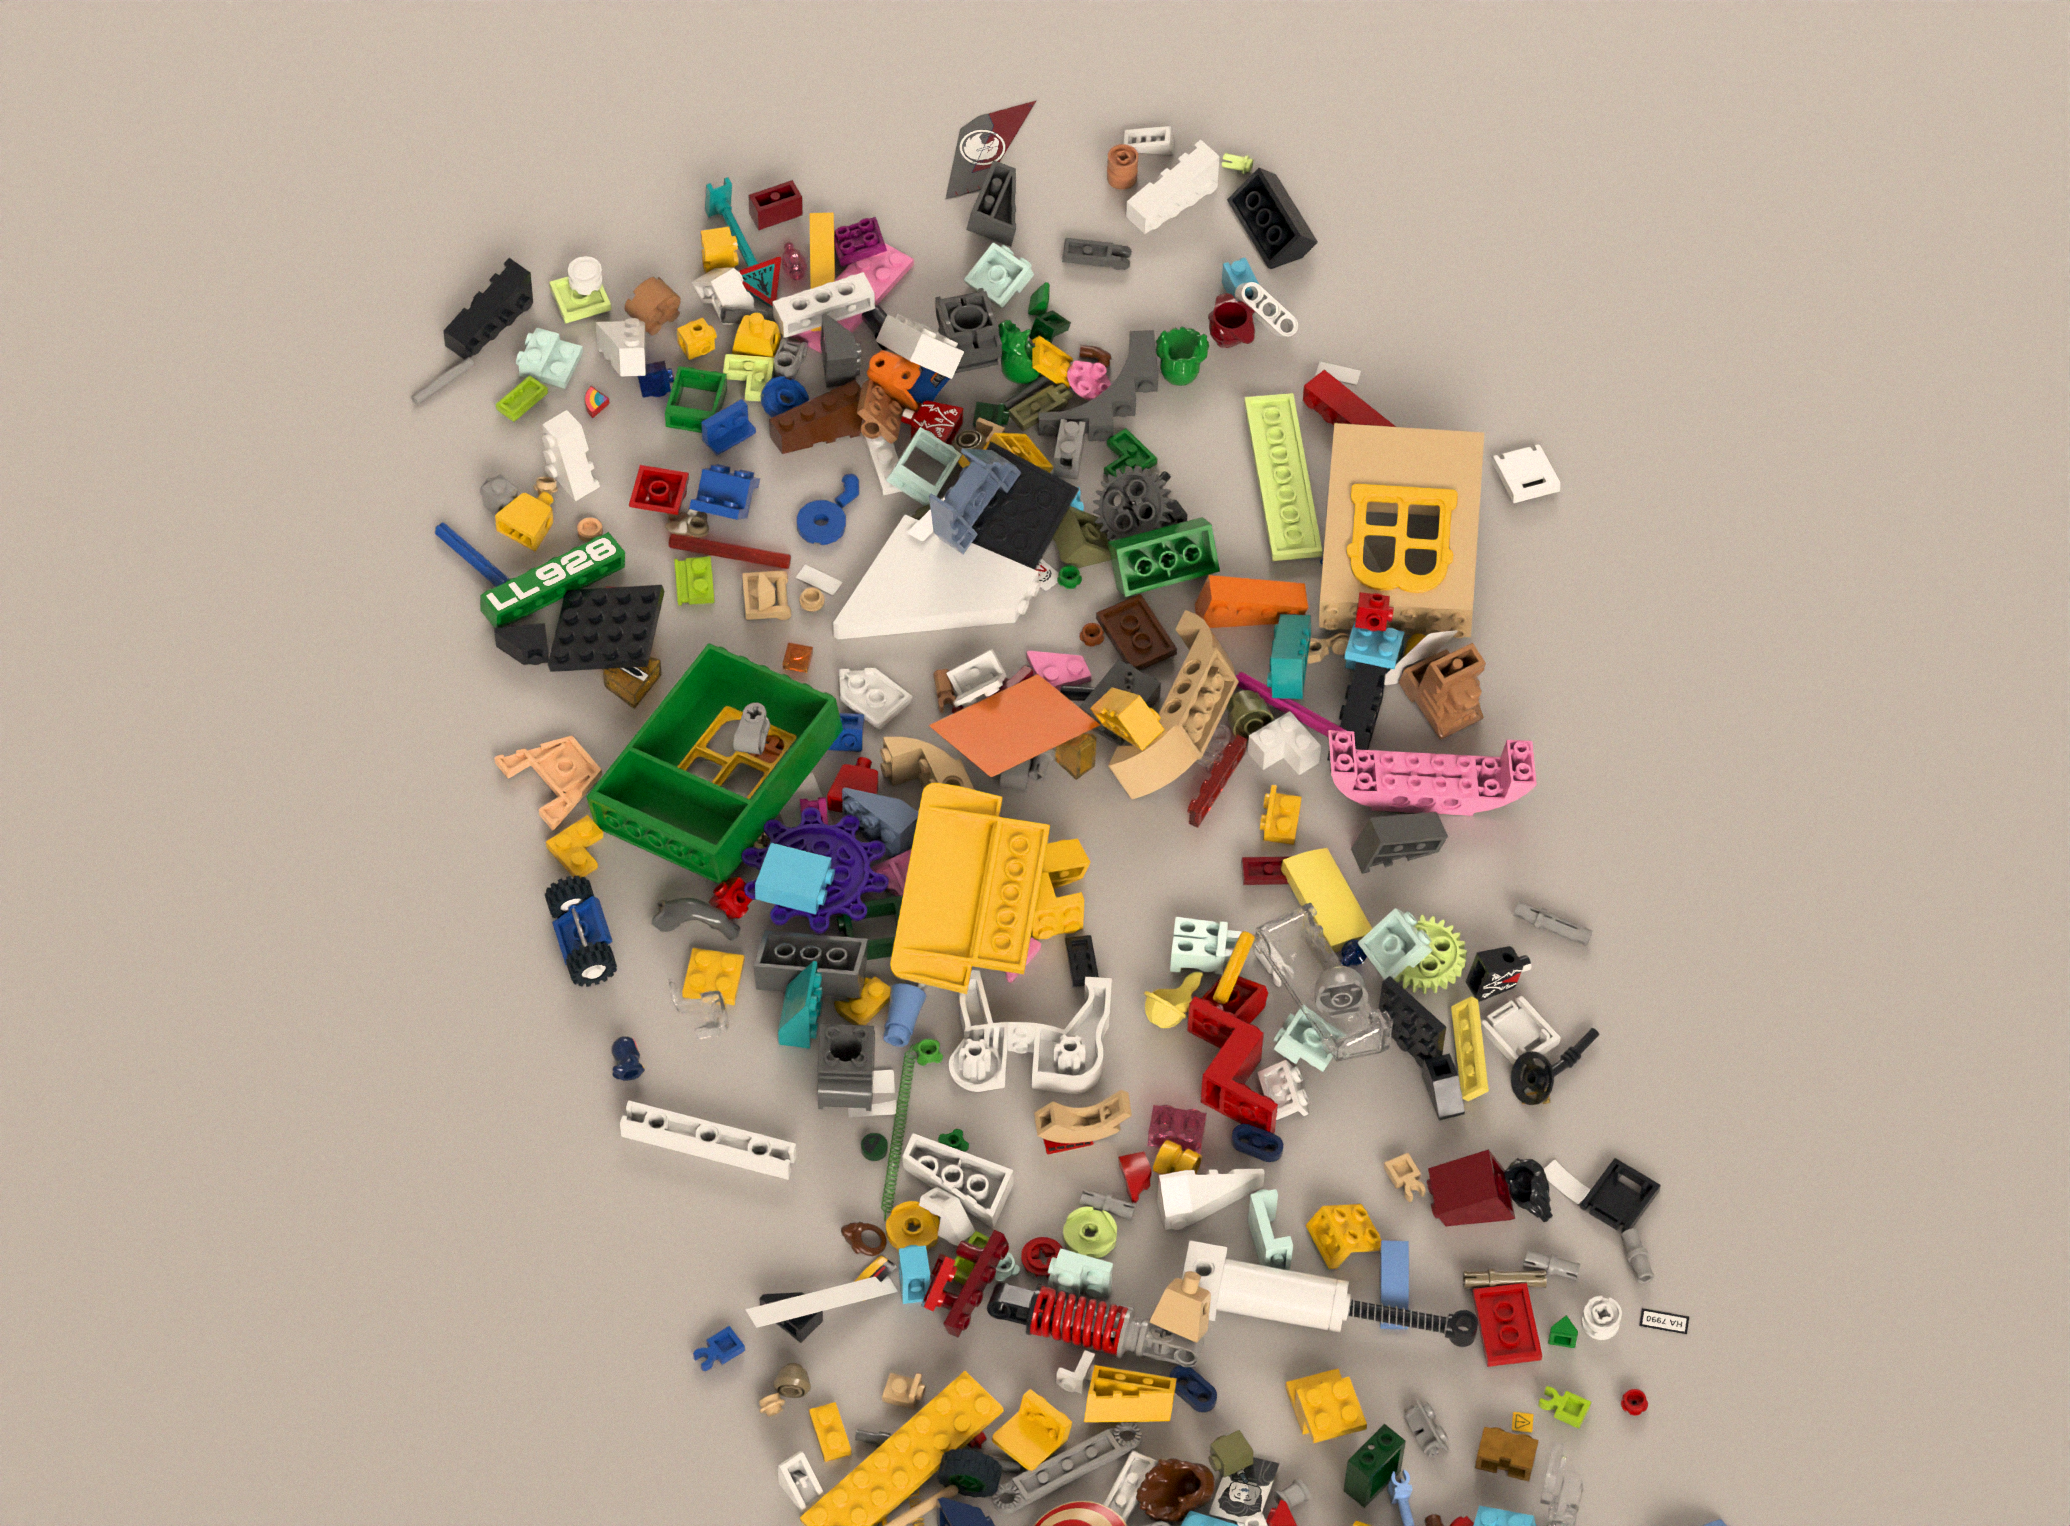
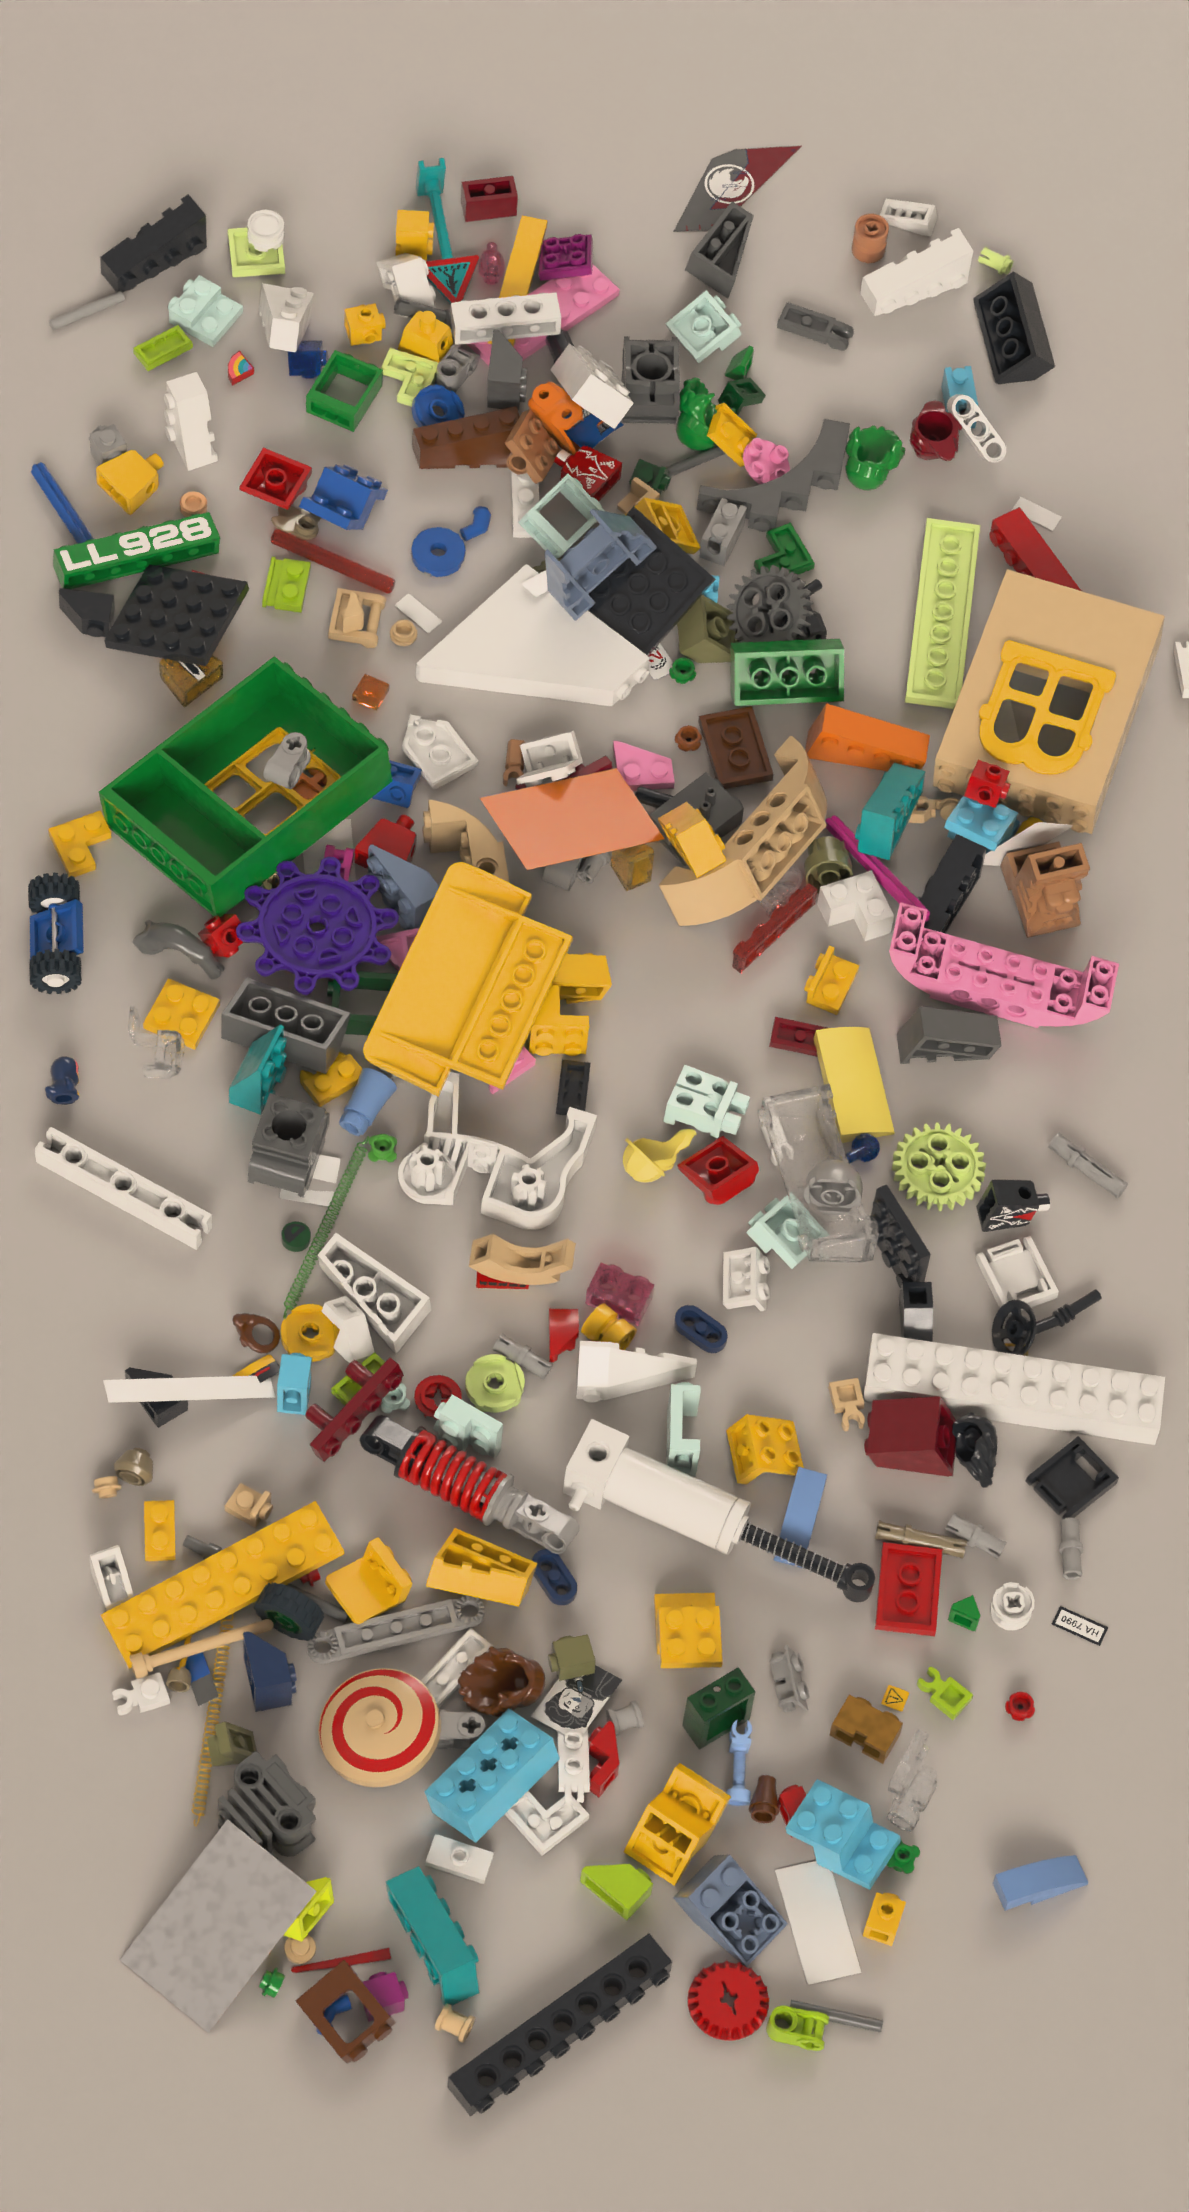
camera: 10 degrees right, 5 degrees up
(546, 484) = (160, 446): tan plate -> none
(563, 768) = (90, 755): light nougat wing -> none
(653, 304) = (328, 278): medium nougat brick -> none
(721, 1346) = (72, 1412): blue plate -> none
(727, 428) = (368, 428): blue bracket -> none
(794, 878) = (290, 930): medium azure brick -> none
(942, 1272) = (324, 1390): red plate -> none
(957, 1136) = (385, 1245): green plate -> none
(968, 440) = (617, 500): dark tan cone -> none
(1048, 400) = (716, 474): olive hinge -> none
(1077, 1380) = (436, 1537): white bracket -> none
(1096, 353) = (782, 433): reddish brown arm -> none
(1184, 1308) = (564, 1490): tan torso -> none
(1233, 967) = (728, 1134): yellow axle -> none
(1238, 1057) = (696, 1240): red bracket -> none
(1395, 944) = (909, 1150): light aqua plate -> none
(1469, 1048) = (957, 1281): light yellow plate -> none
(1550, 1128) = (1017, 1388): none -> white brick
(1565, 1182) = (1018, 1449): white sticker -> none

